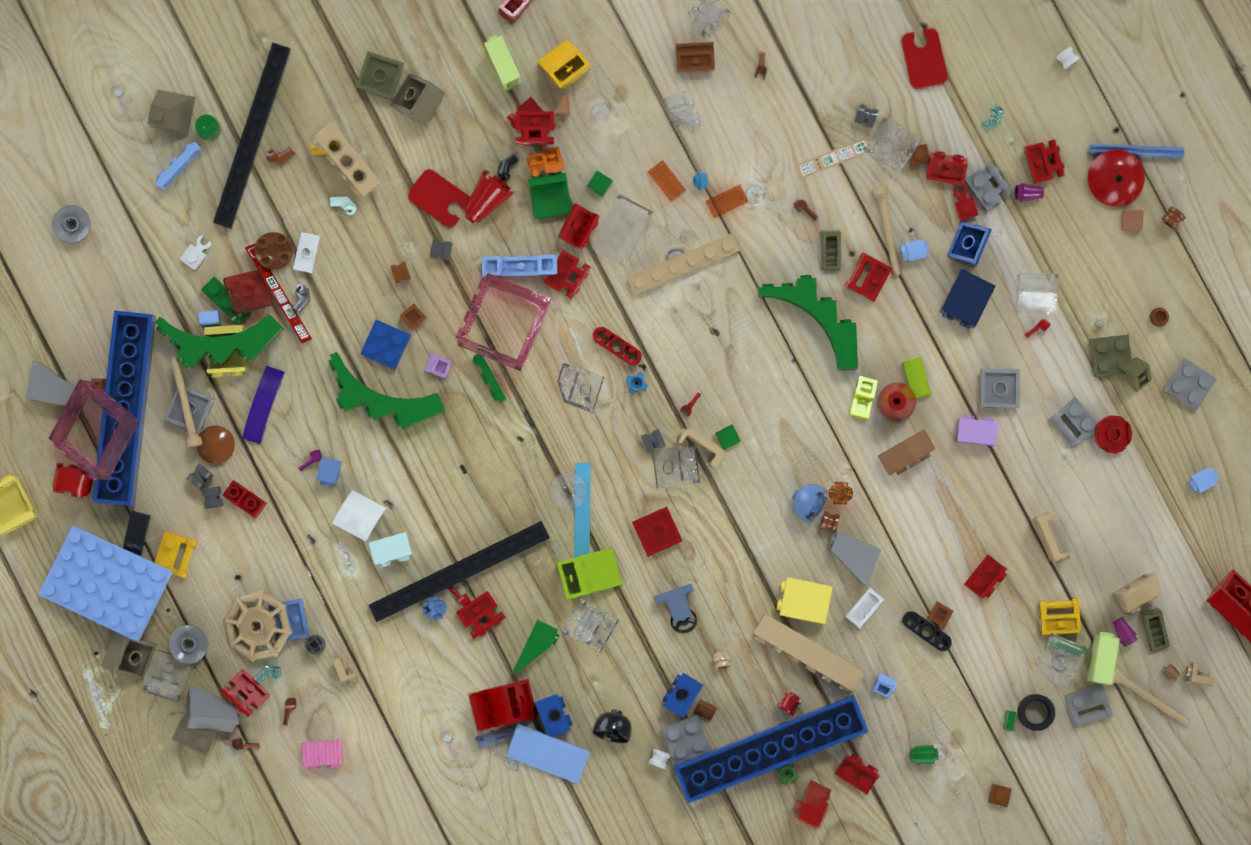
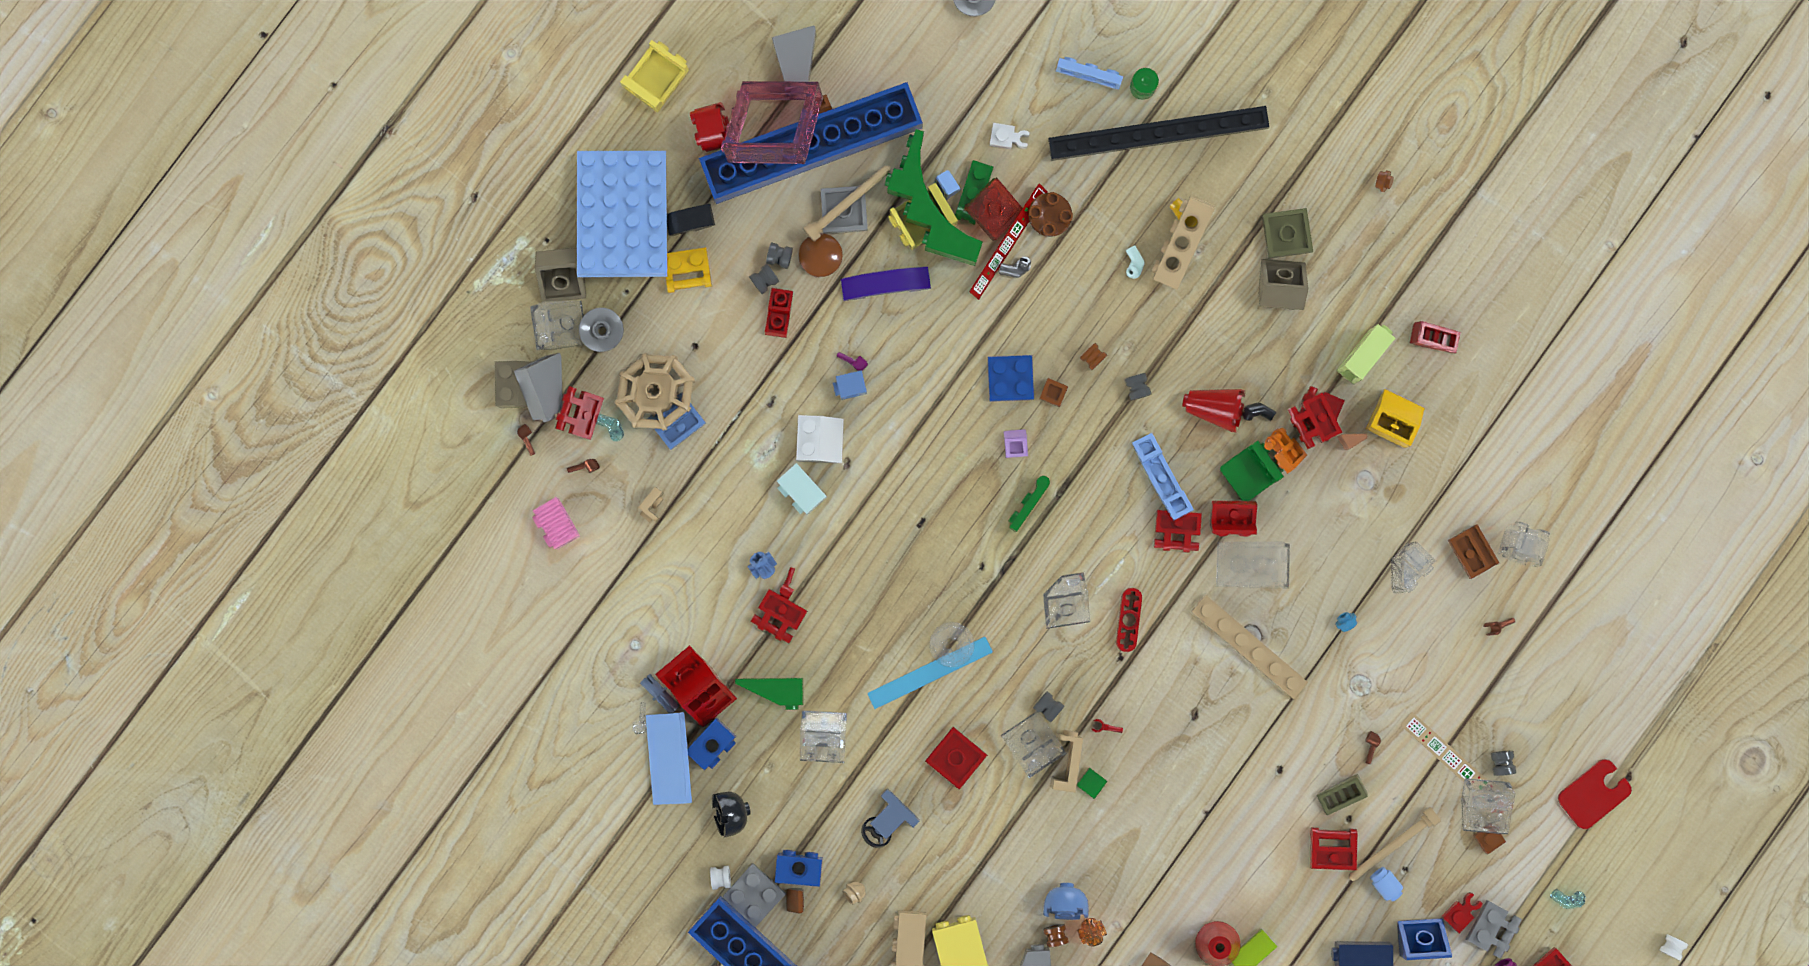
camera: 65 degrees right, 0 degrees up
(171, 111) = (1141, 38): dark tan slope -> none
(278, 157) = (1149, 172): dark orange arm -> none
(306, 252) = (1065, 249): white plate -> none
(317, 642) = (667, 461): dark grey wheel -> none
(407, 411) = (943, 373): green arch -> none
(434, 196) = (1192, 352): red piece -> none
(458, 571) = (813, 571): black plate -> none
(514, 290) = (1133, 483): clear pink window -> none
(589, 573) = (877, 709): lime slope -> none
(599, 183) = (1290, 517): green tile -> none
(633, 387) = (1094, 659): dark azure plate -> none
(666, 181) = (1328, 586): clear orange tile -> none
(726, 201) = (1338, 659): clear orange tile -> none
(804, 295) = (1273, 821): green arch -> none
(863, 398) = (1203, 906): neon yellow slope -> none
(947, 168) = (1491, 876): red bracket -> none

